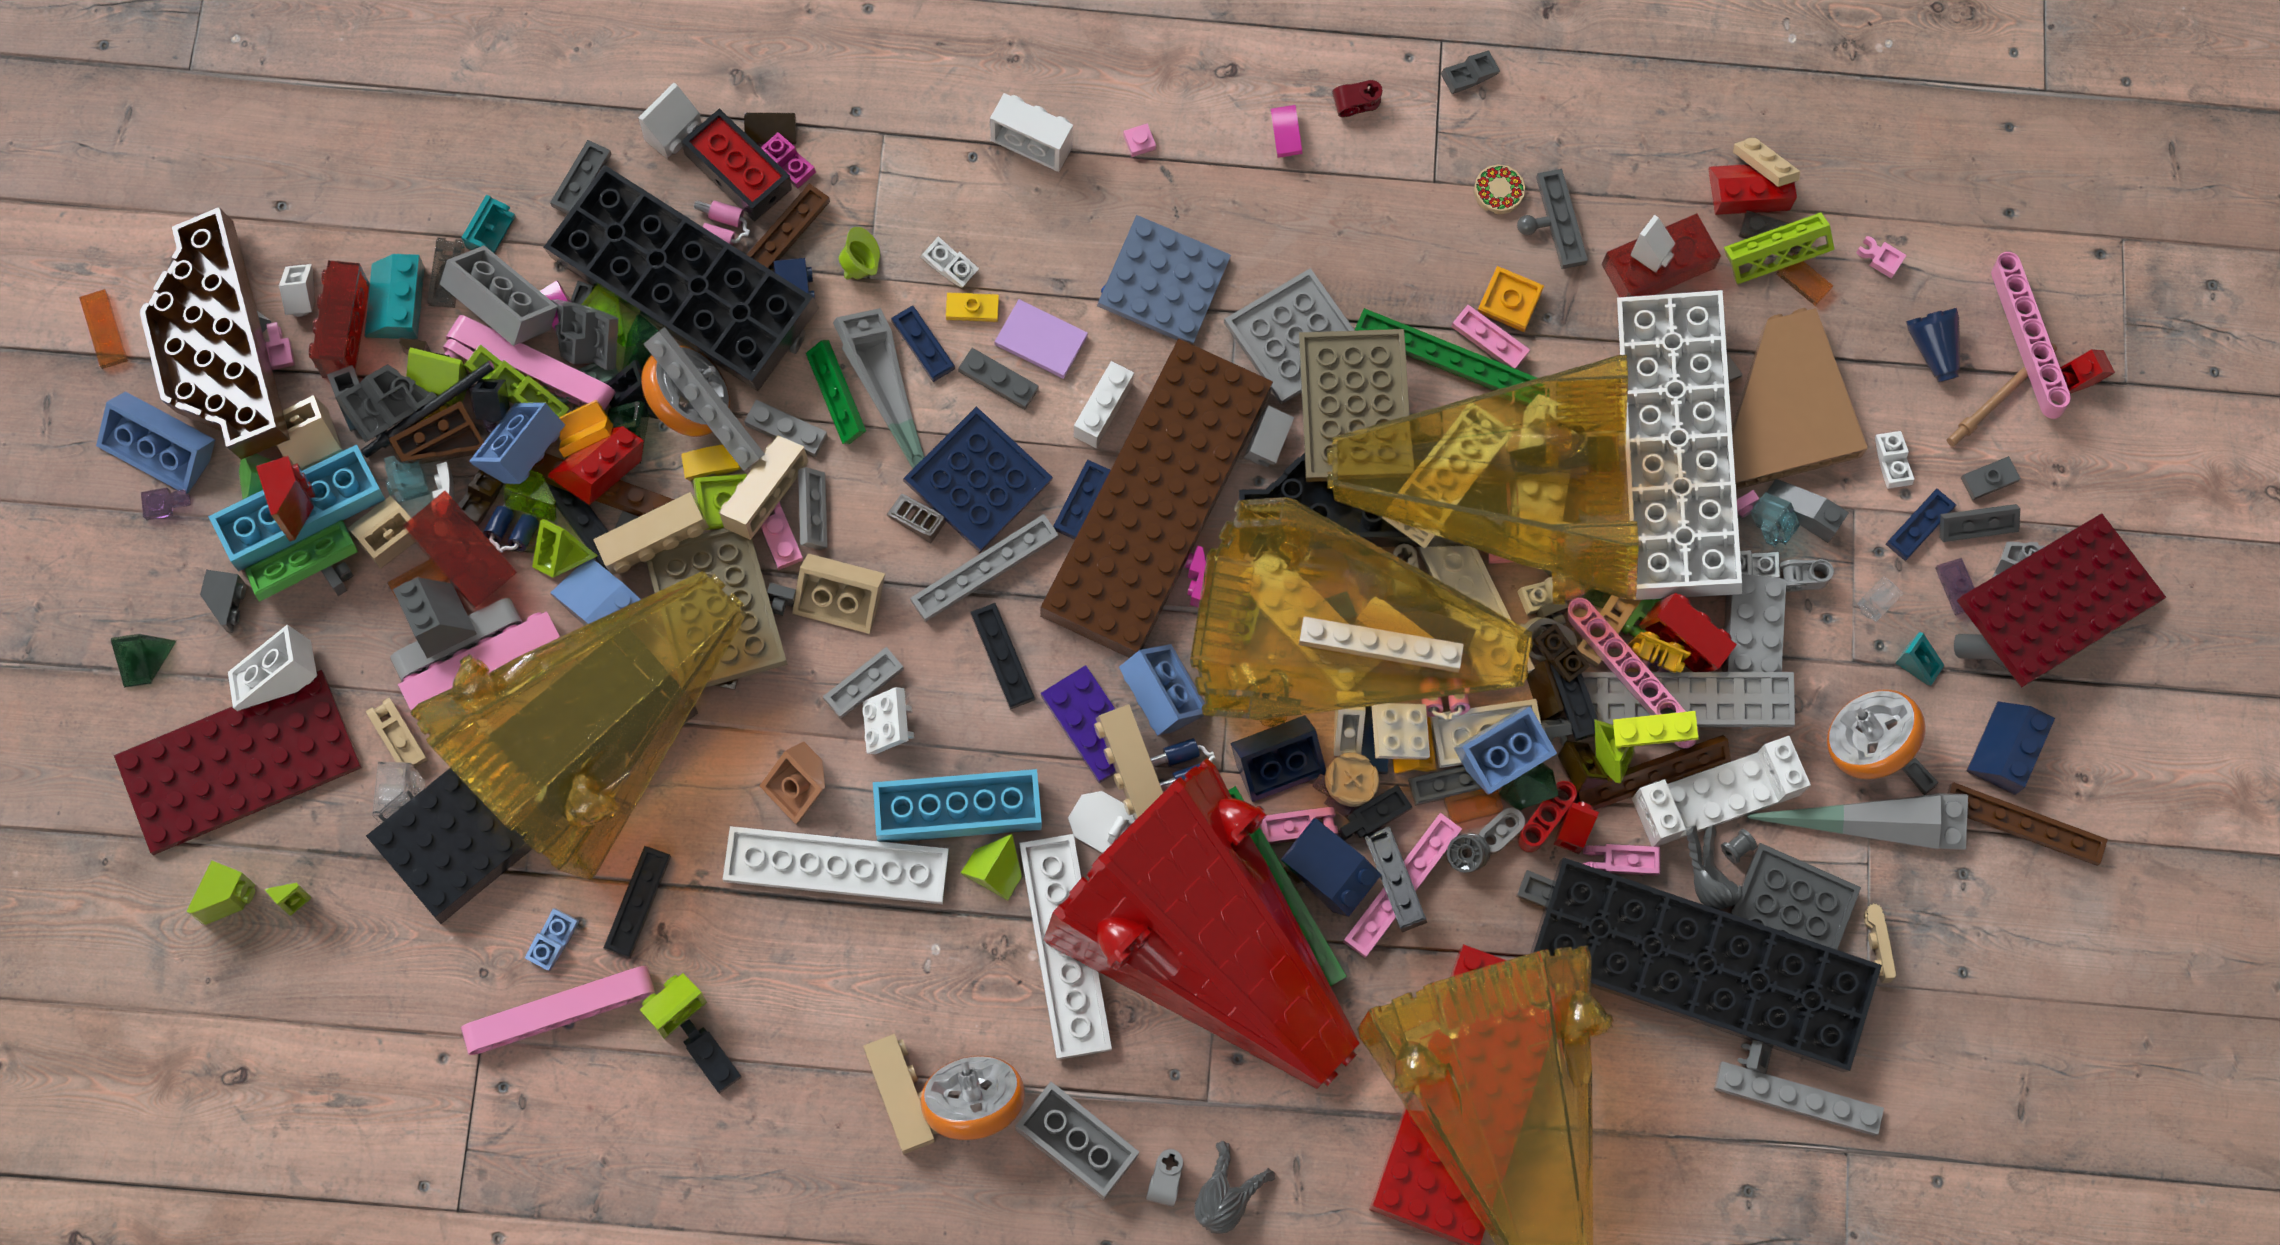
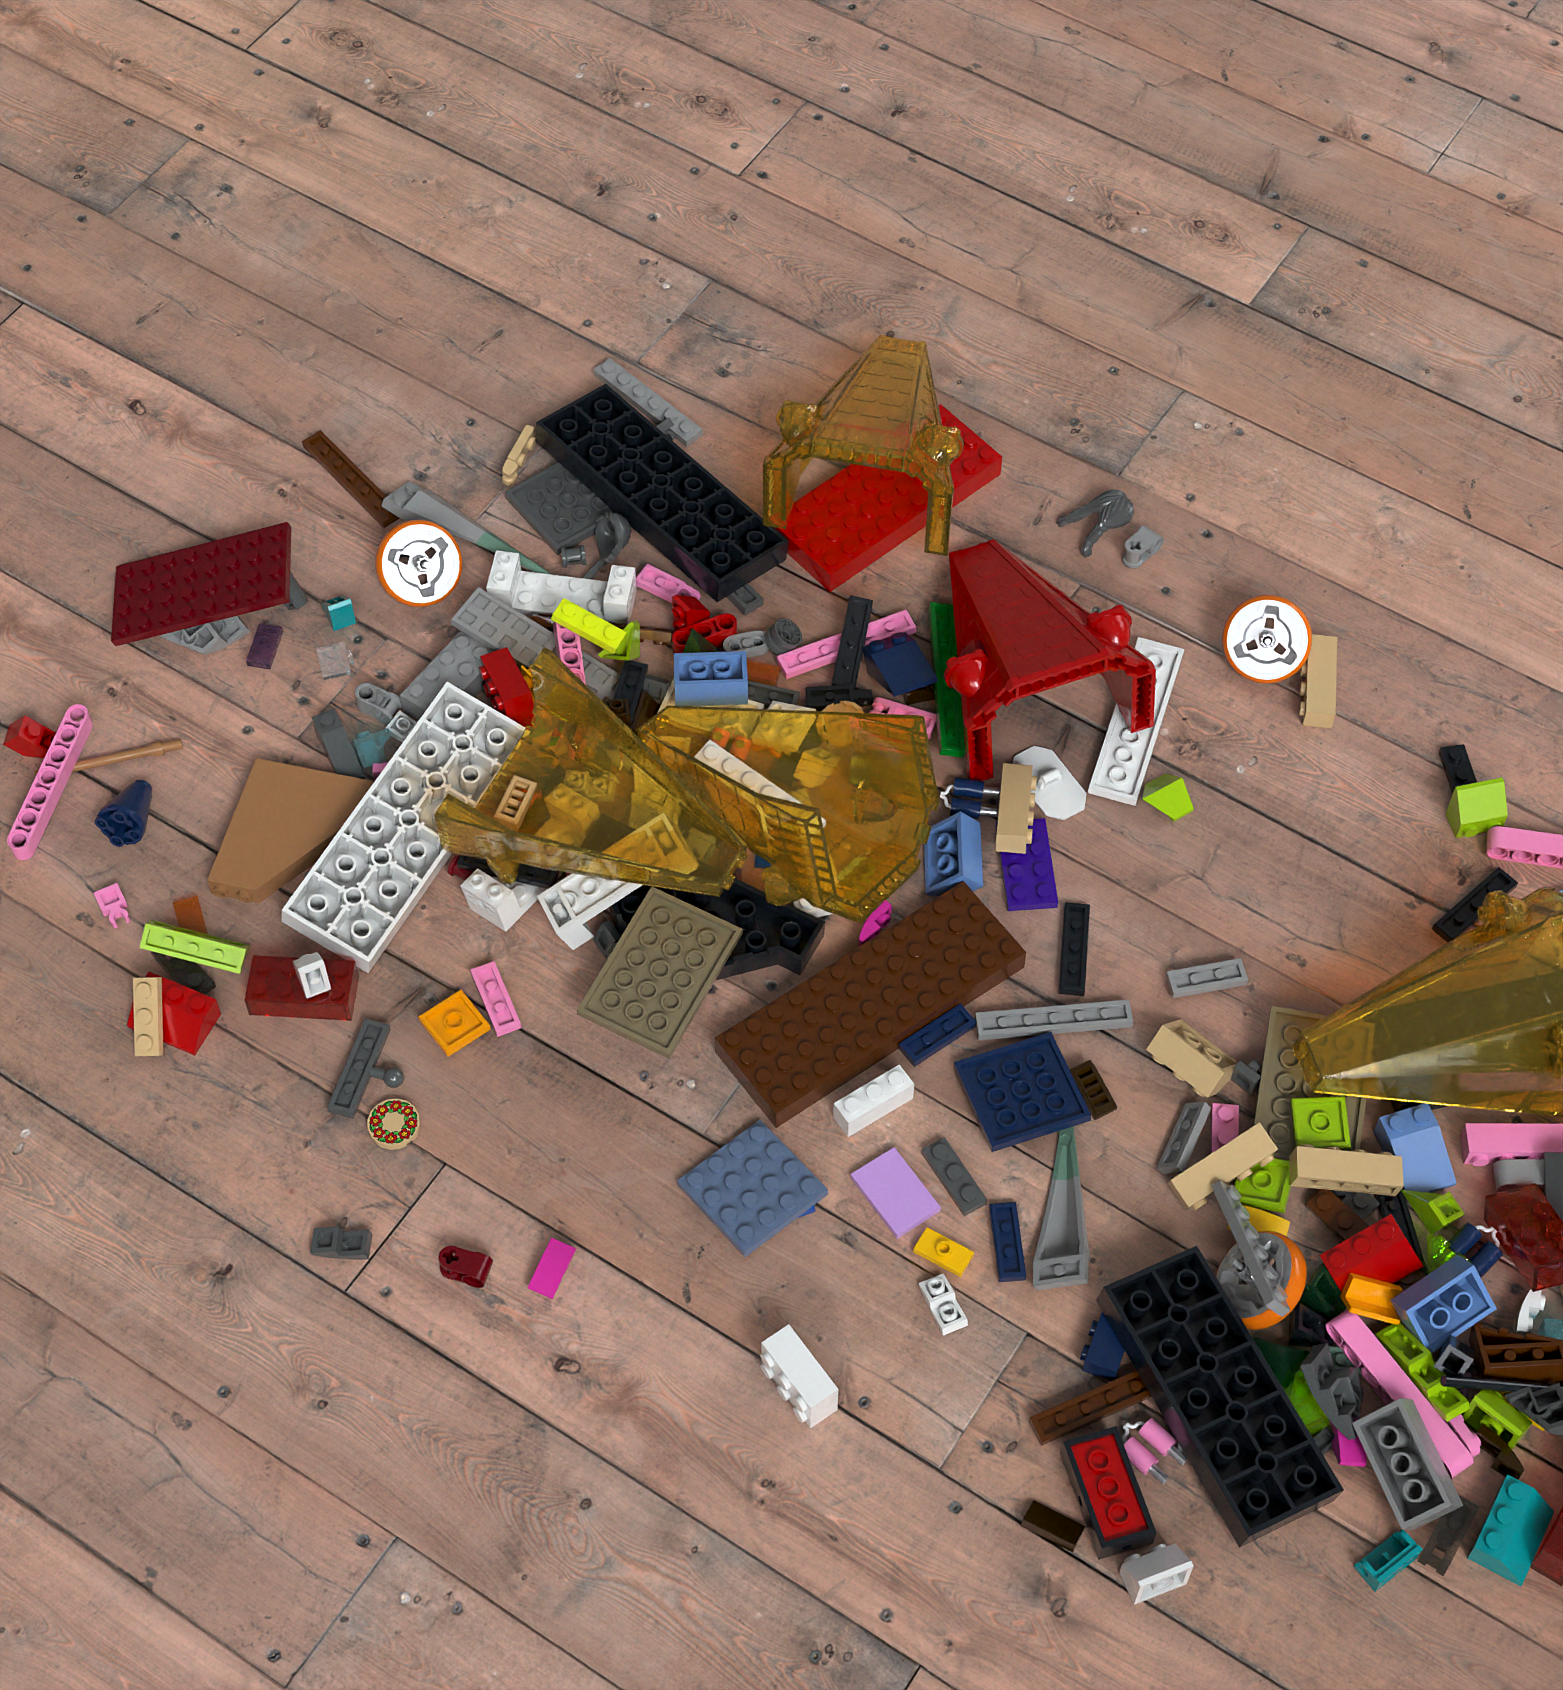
camera: 145 degrees left, 15 degrees down
(480, 496) = (1502, 1292): dark brown slope -> none
(580, 175) = (1271, 1566): dark grey plate -> none
(691, 559) = (1321, 1122): none -> lime plate
(776, 422) = (1172, 1222): light grey plate -> none
(788, 159) = (1050, 1483): dark pink slope -> none
(795, 781) = (1299, 927): nougat slope -> none
(835, 392) = (1113, 1229): green plate -> none
(835, 865) = (1296, 855): white plate -> none
(859, 254) = (1028, 1343): lime piece -> none
(886, 721) = (1203, 931): white plate -> none
(957, 806) = (1175, 844): medium azure brick -> none
(1077, 1140) = (1196, 588): light grey brick -> none
(1139, 140) = (694, 1334): bright pink plate -> none
(1268, 437) = (741, 1004): light grey hinge -> none
(1272, 325) = (664, 1092): light grey plate -> none
(1447, 355) = (540, 997): green plate -> none
(1582, 766) = (655, 651): dark brown slope -> none
(1588, 476) = (509, 817): none -> tan slope
(1893, 459) = (237, 754): white slope -> none
(1920, 524) = (255, 700): dark blue tile -> none
(1979, 523) = (210, 676): dark grey plate -> none
(1990, 478) = (172, 706): dark grey plate -> none
(2010, 745) = (321, 525): dark blue slope -> none

